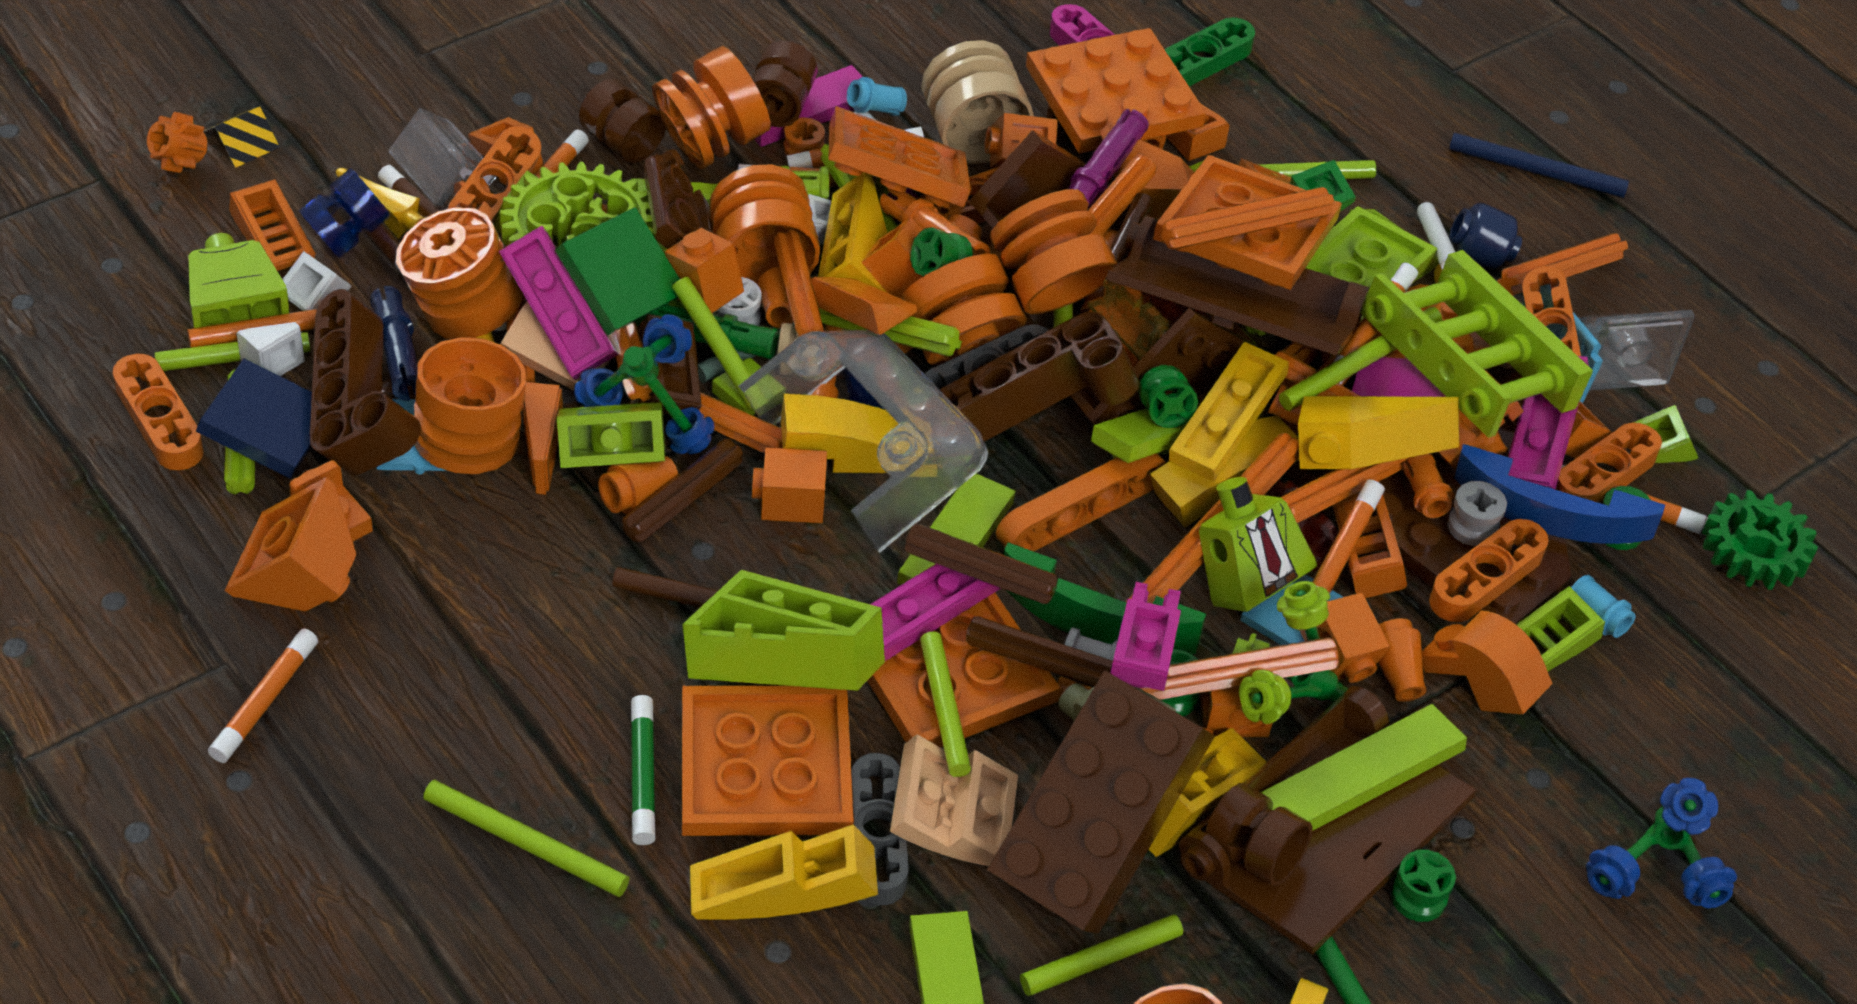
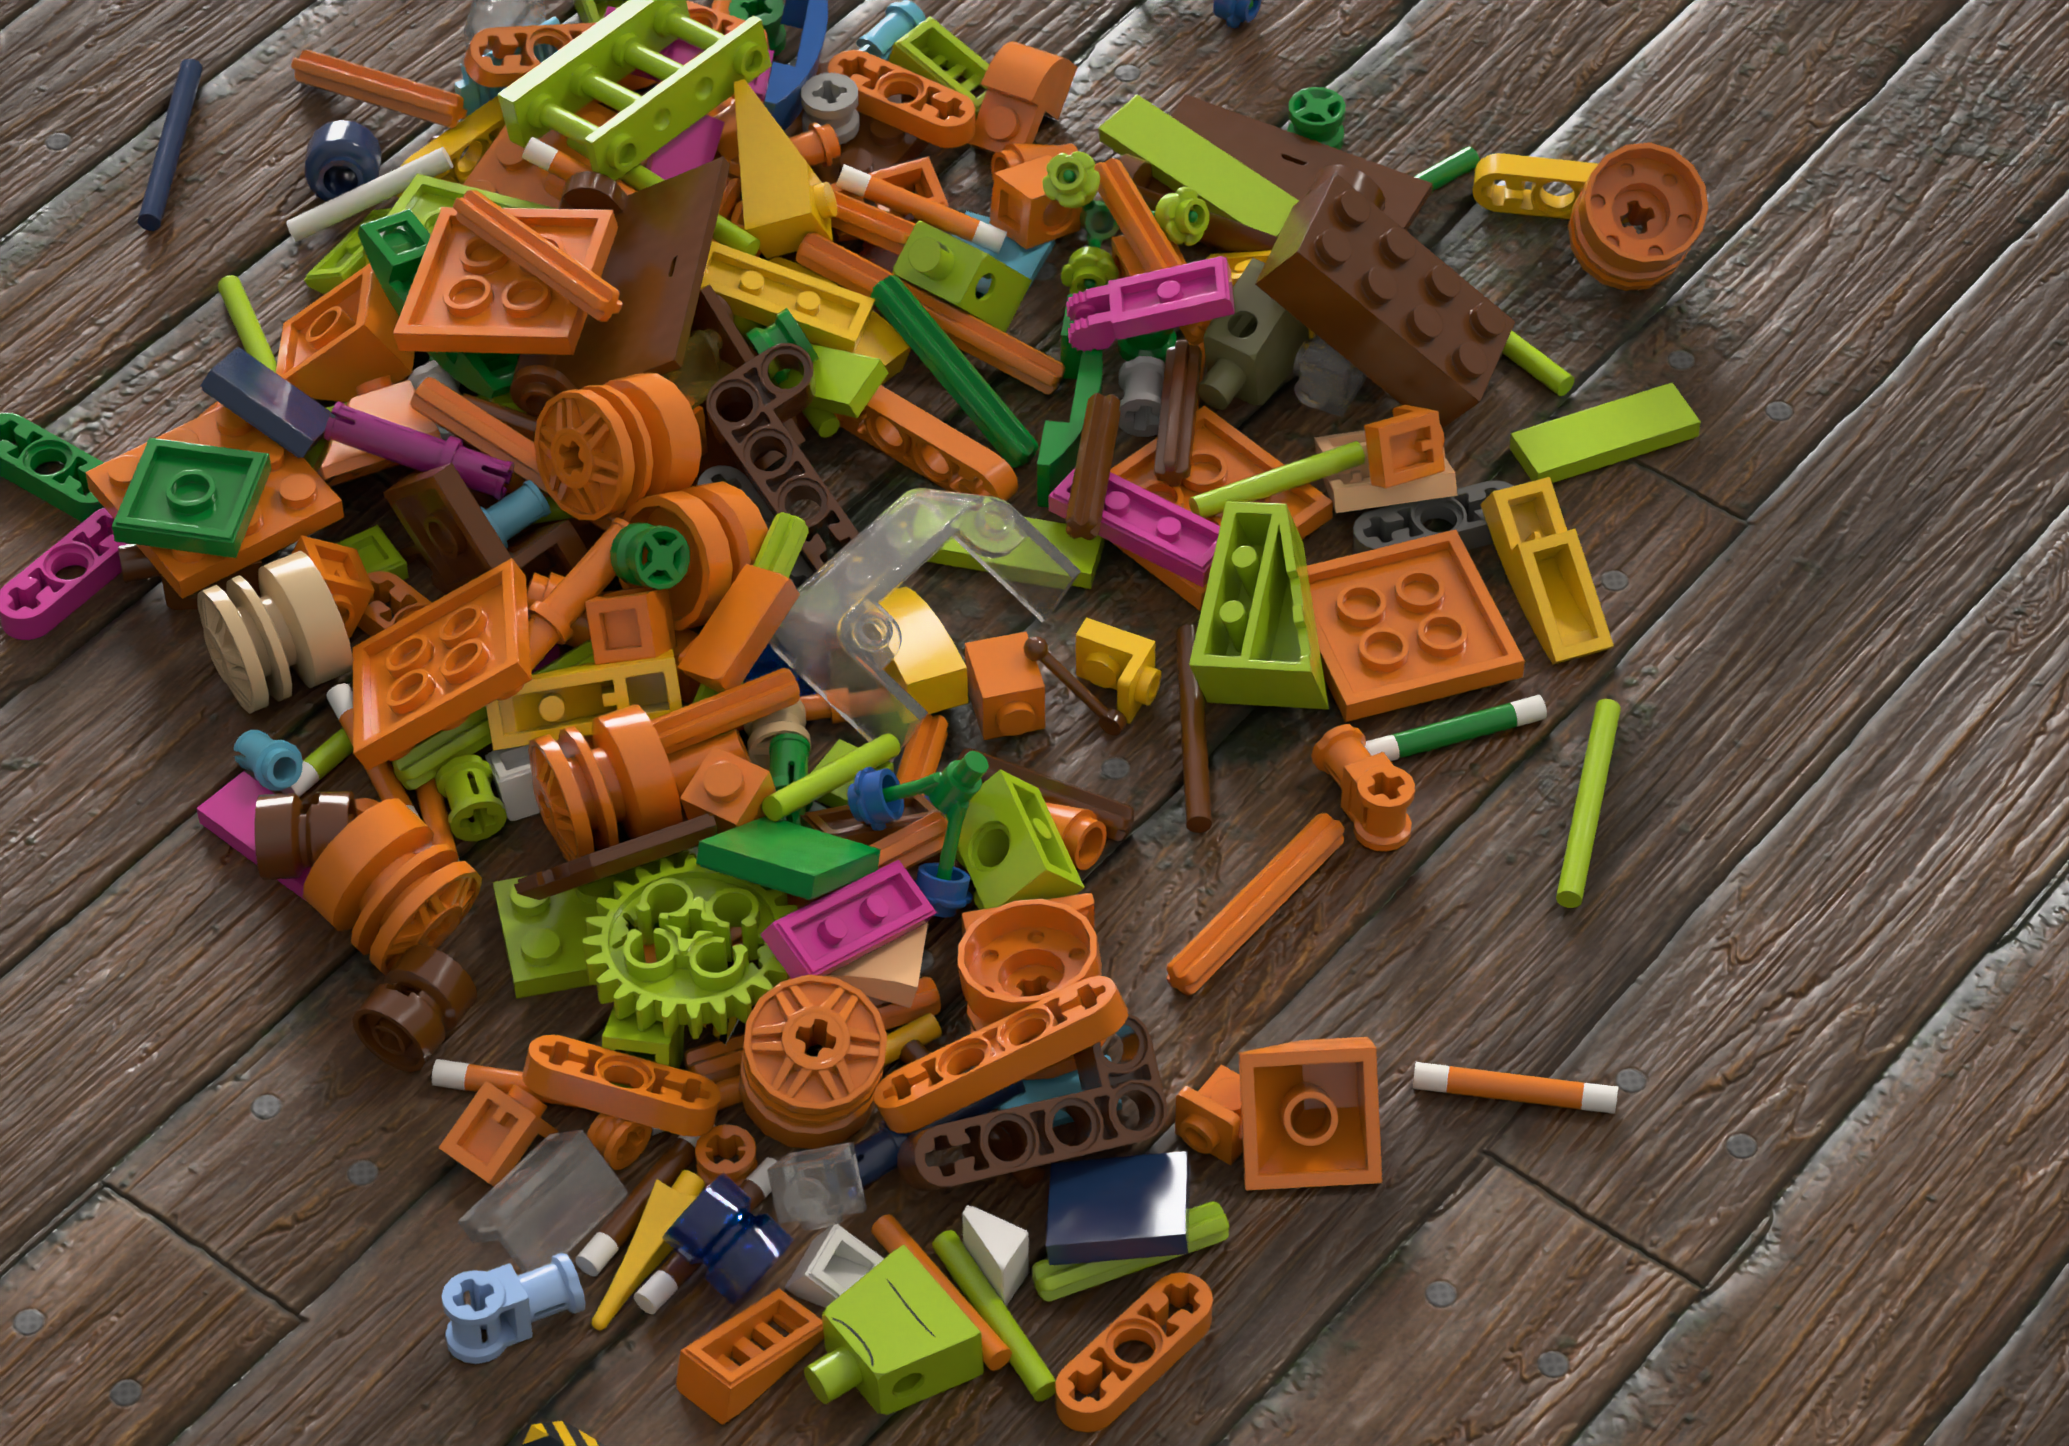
camera: 100 degrees left, 0 degrees up
(360, 257) = (817, 1186): none -> clear brick
(364, 122) = (506, 1306): none -> light blue connector
(394, 348) = (1066, 1026): none -> orange beam
(520, 588) = (1255, 904): none -> orange axle
(591, 679) = (1371, 786): none -> orange connector
(744, 551) = (1110, 719): none -> reddish brown hinge
(792, 558) = (1118, 662): none -> yellow bracket
(931, 781) = (1405, 446): none -> orange bracket
(1093, 56) = (192, 497): none -> green tile
(1139, 523) = (954, 371): none -> green axle
(1189, 110) = (267, 402): none -> dark blue tile

